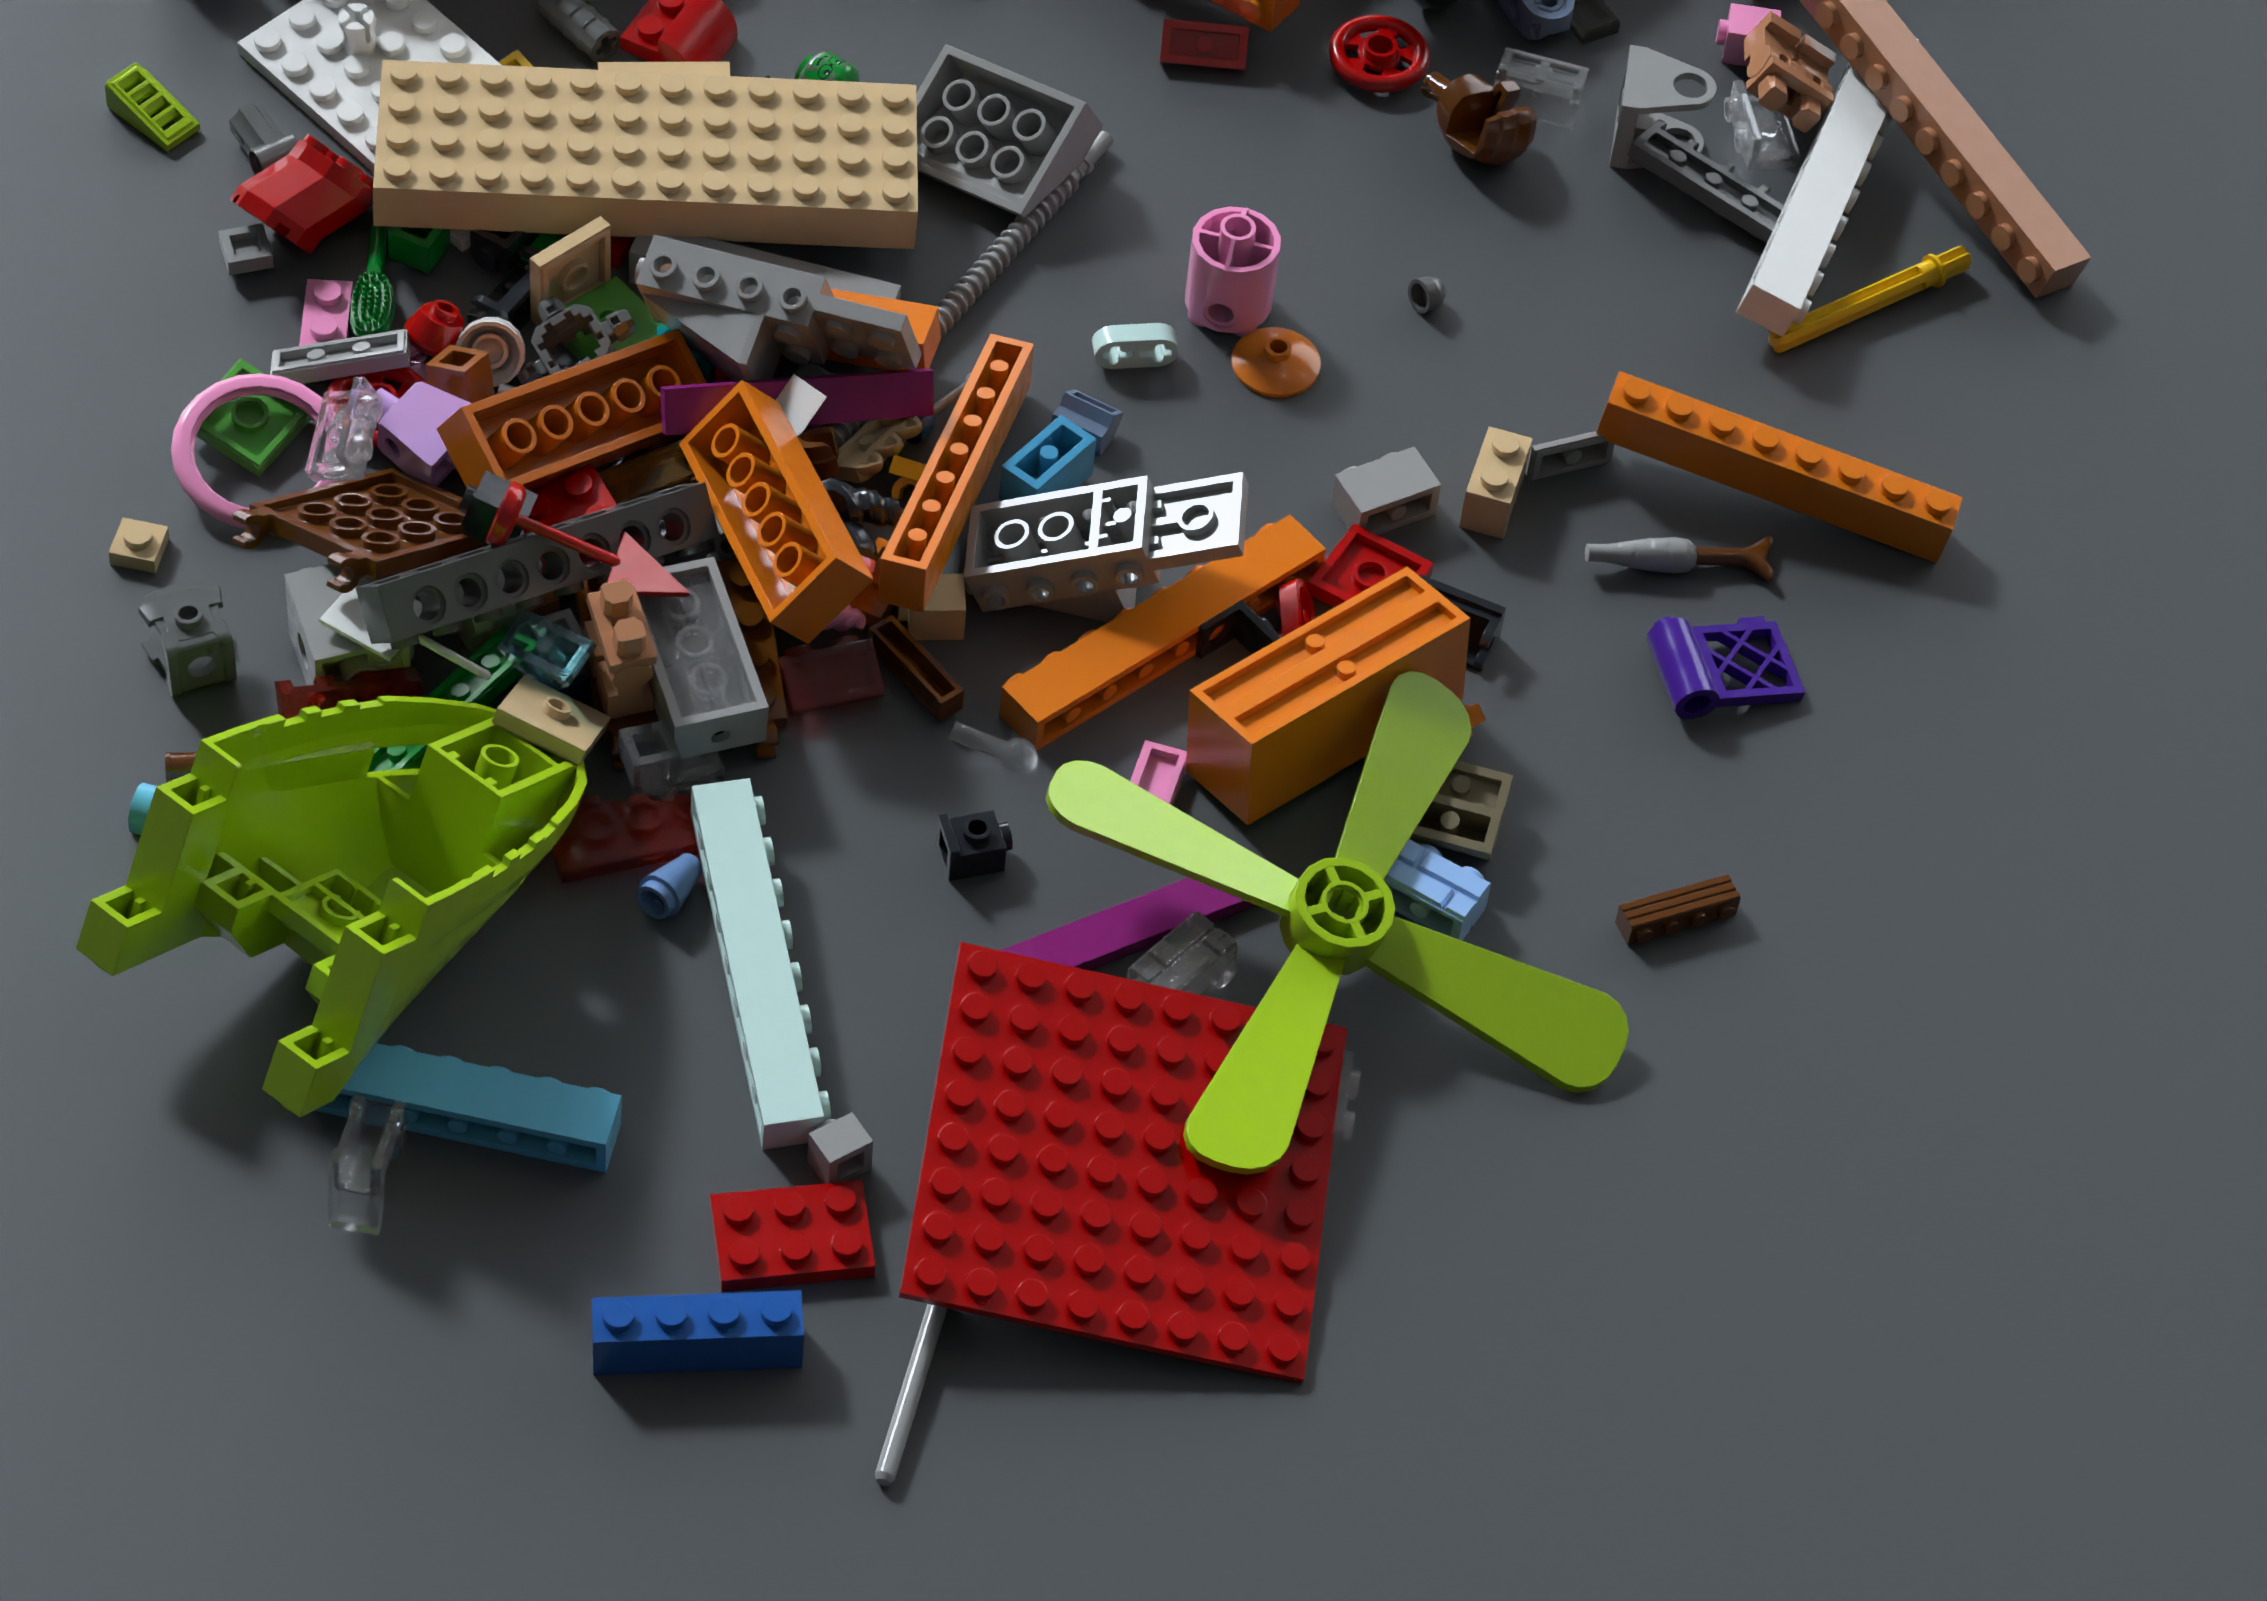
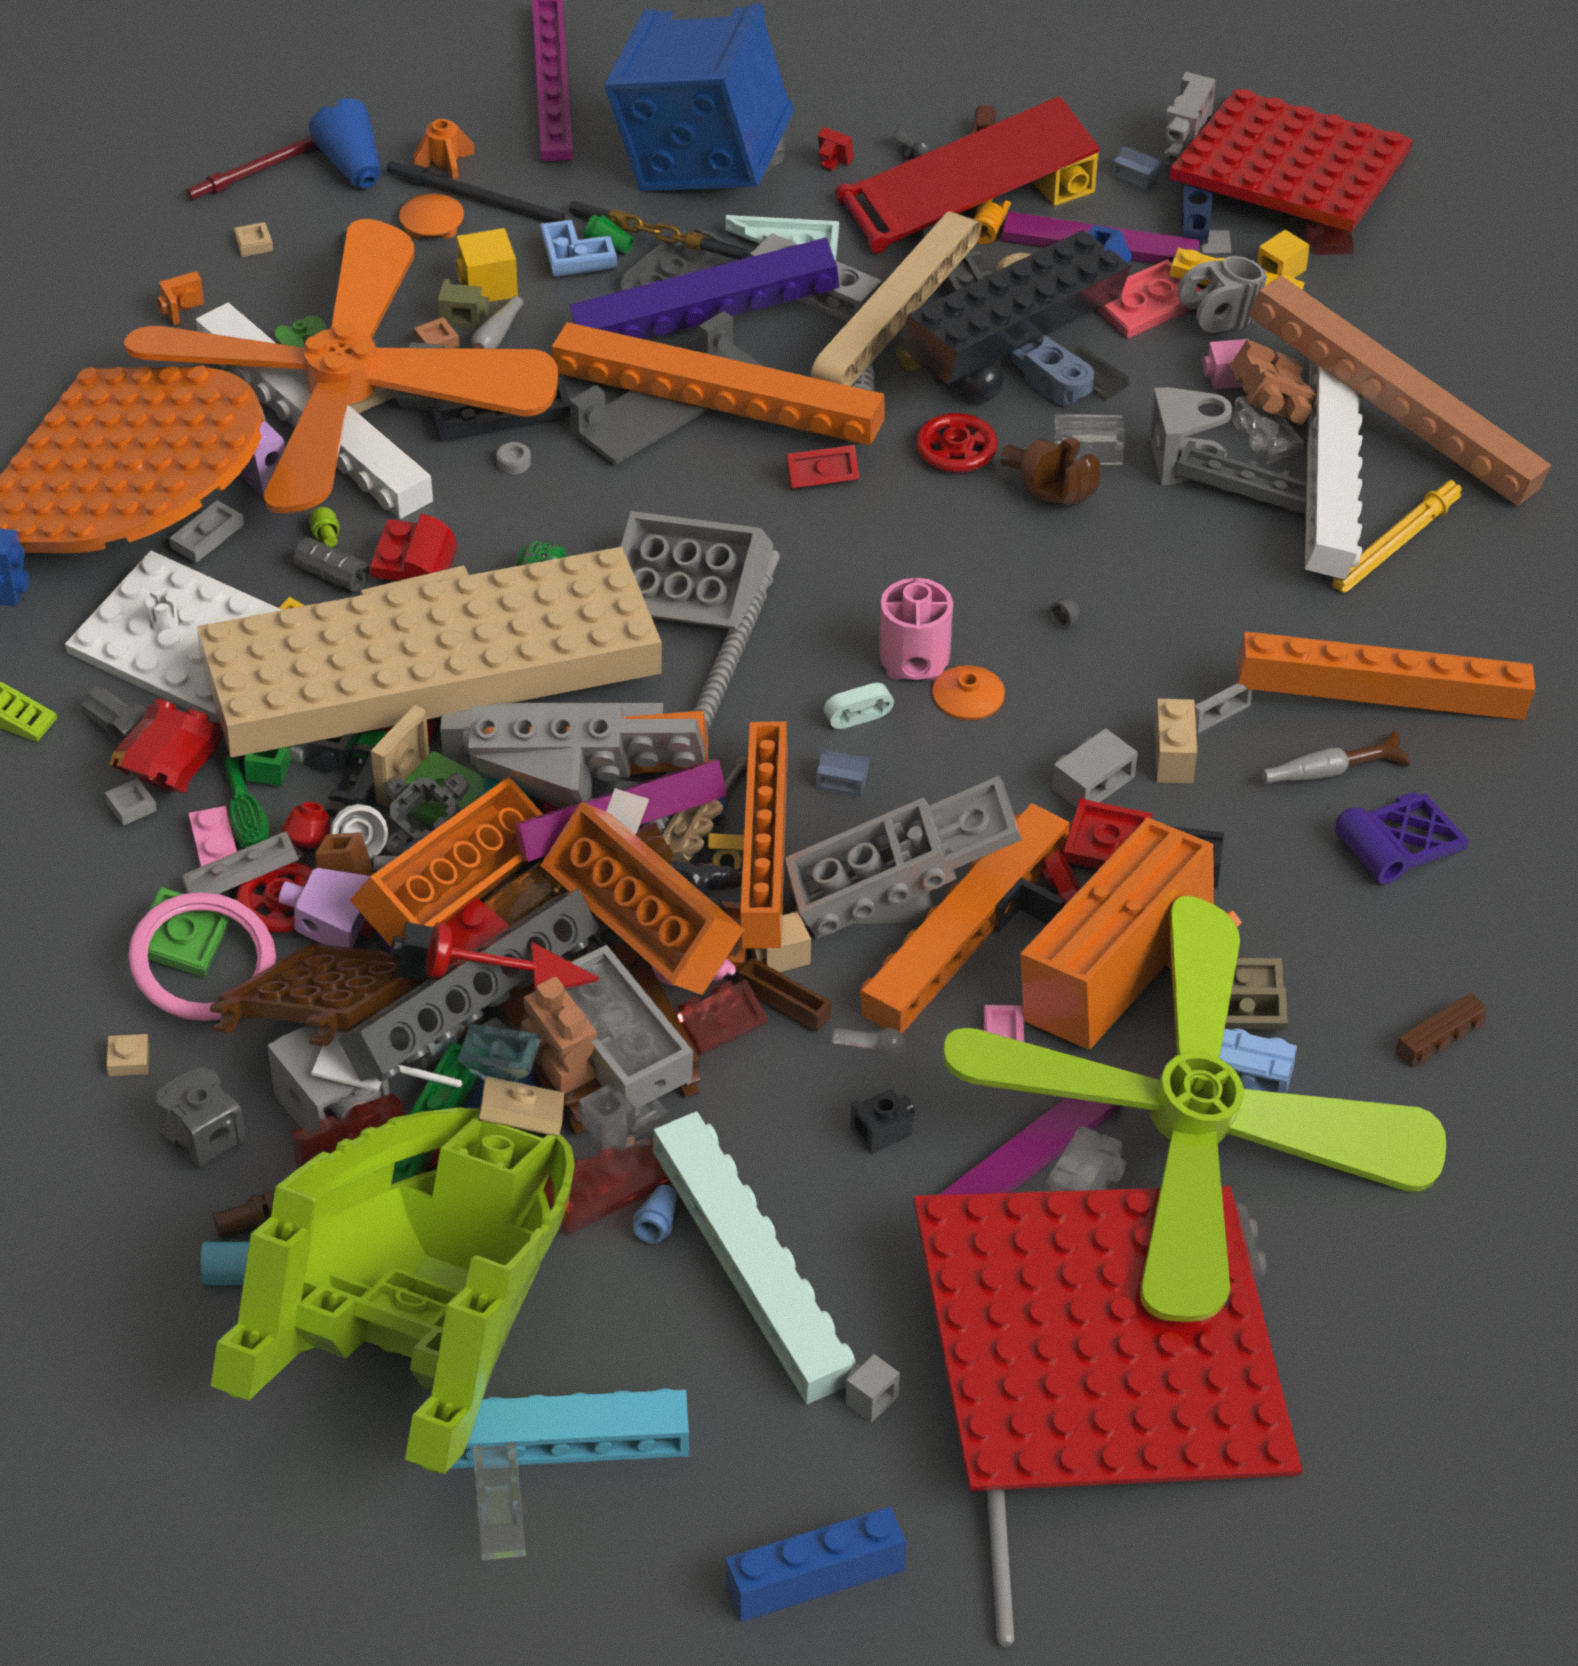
camera: 10 degrees left, 5 degrees down
(344, 433) = (269, 924): clear bracket -> none
(792, 1235) = (858, 1466): red plate -> none
(1051, 462) = (831, 809): dark azure brick -> none

